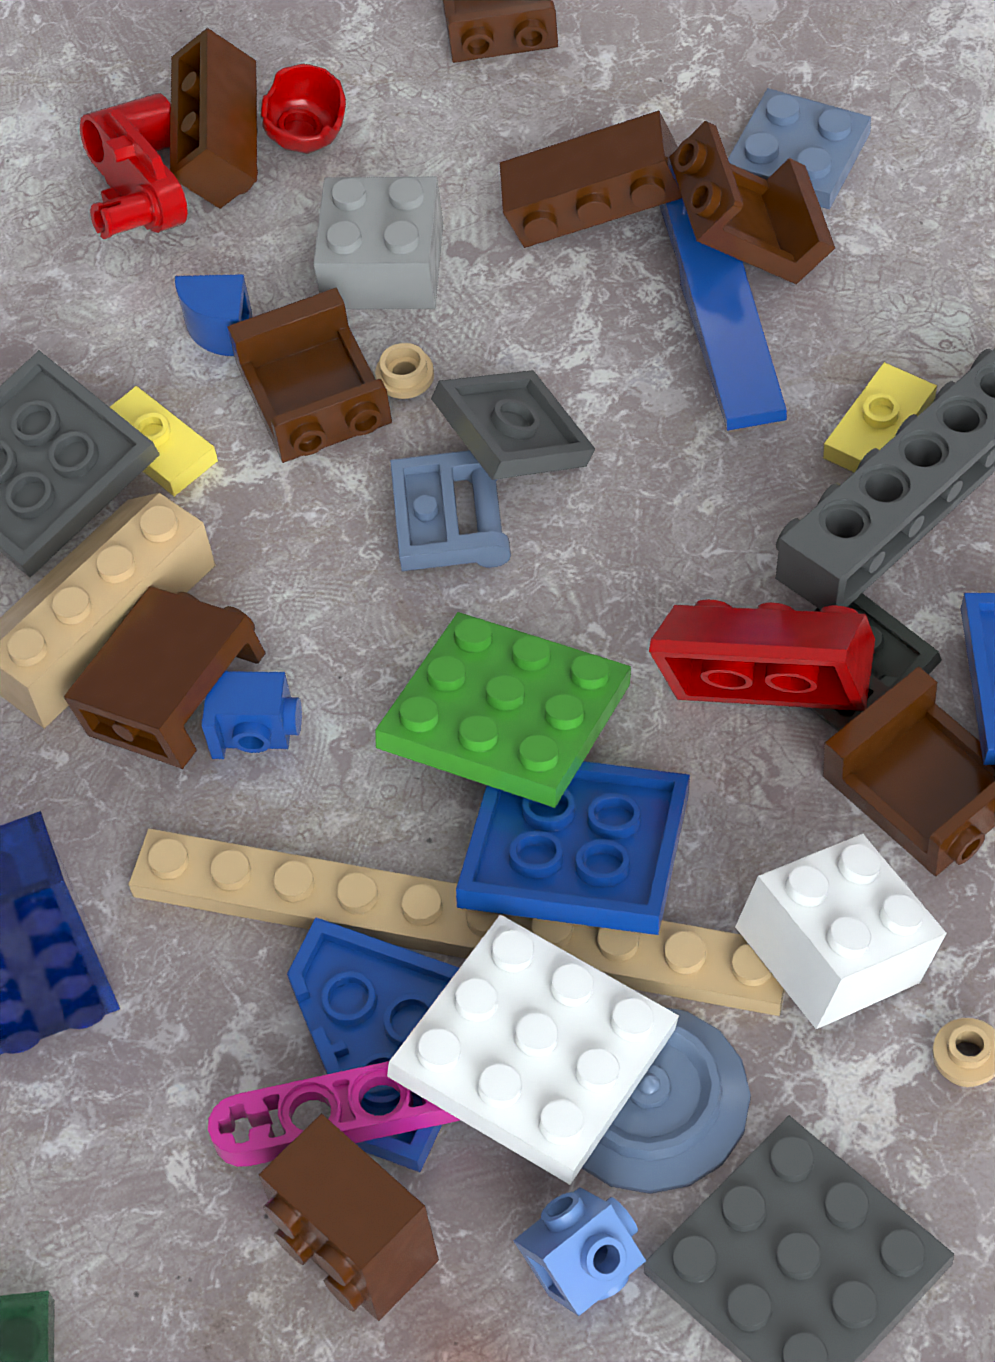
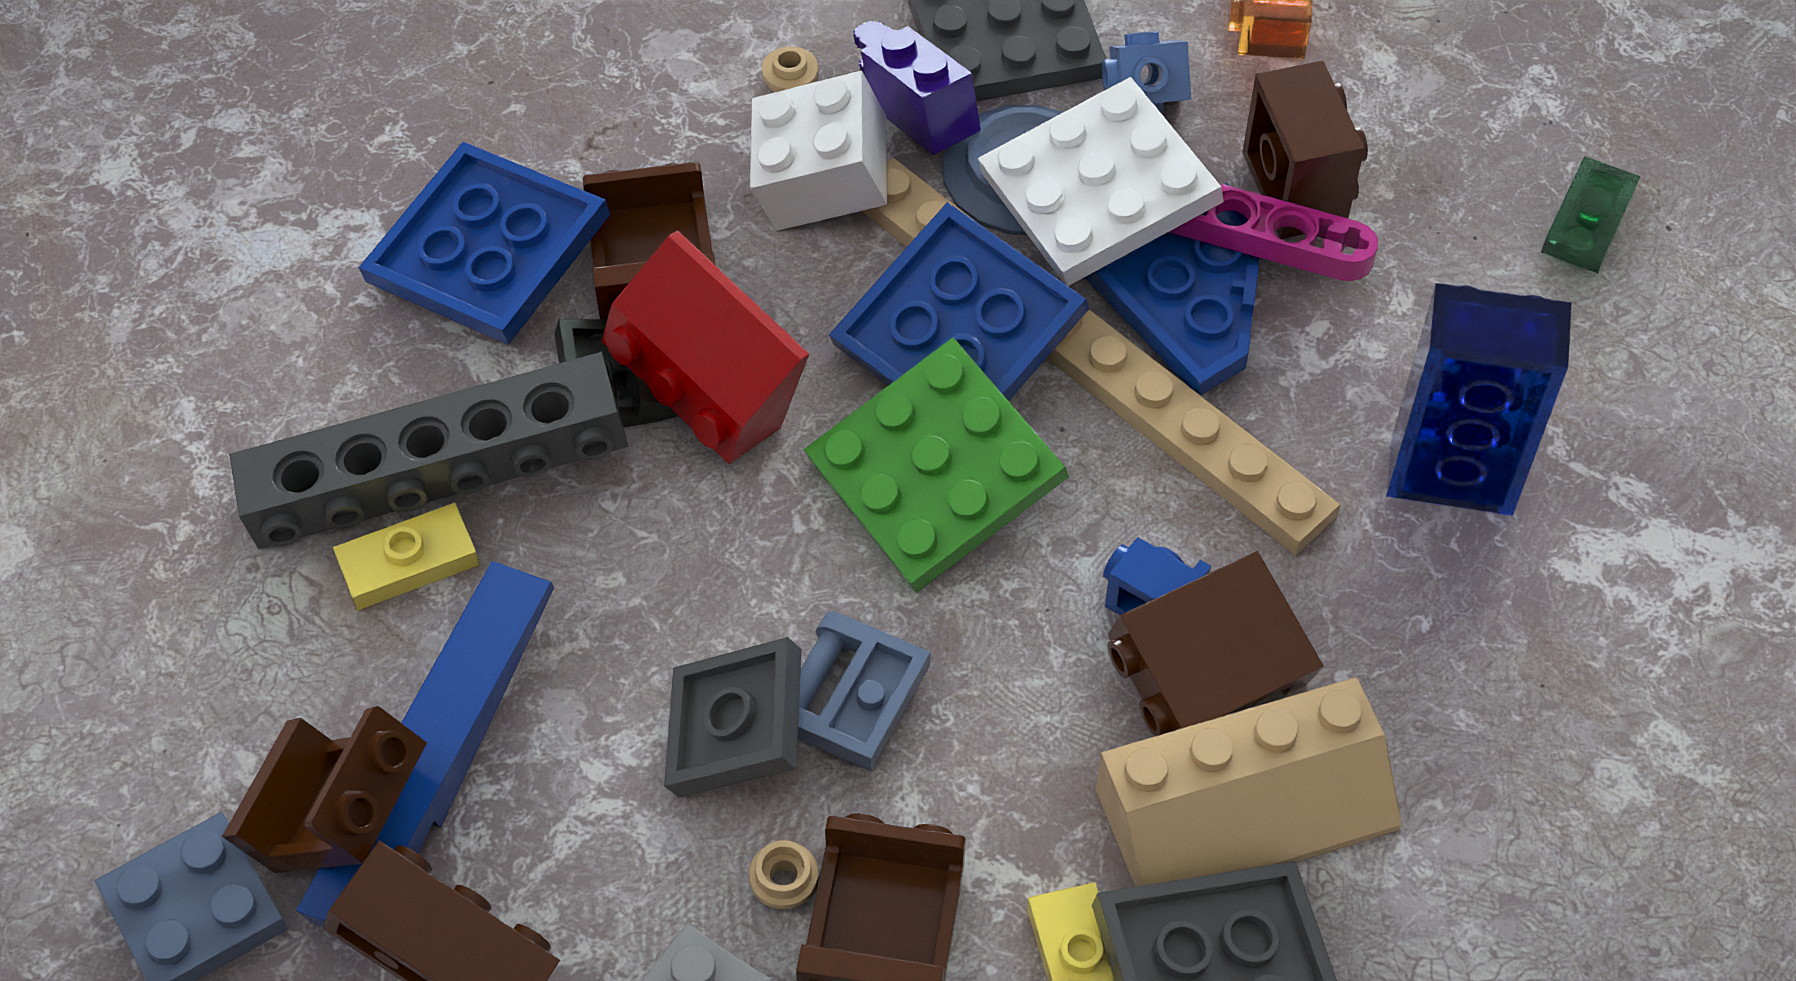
camera: 155 degrees left, 0 degrees up
(814, 1074) = (918, 85): none -> dark purple hinge

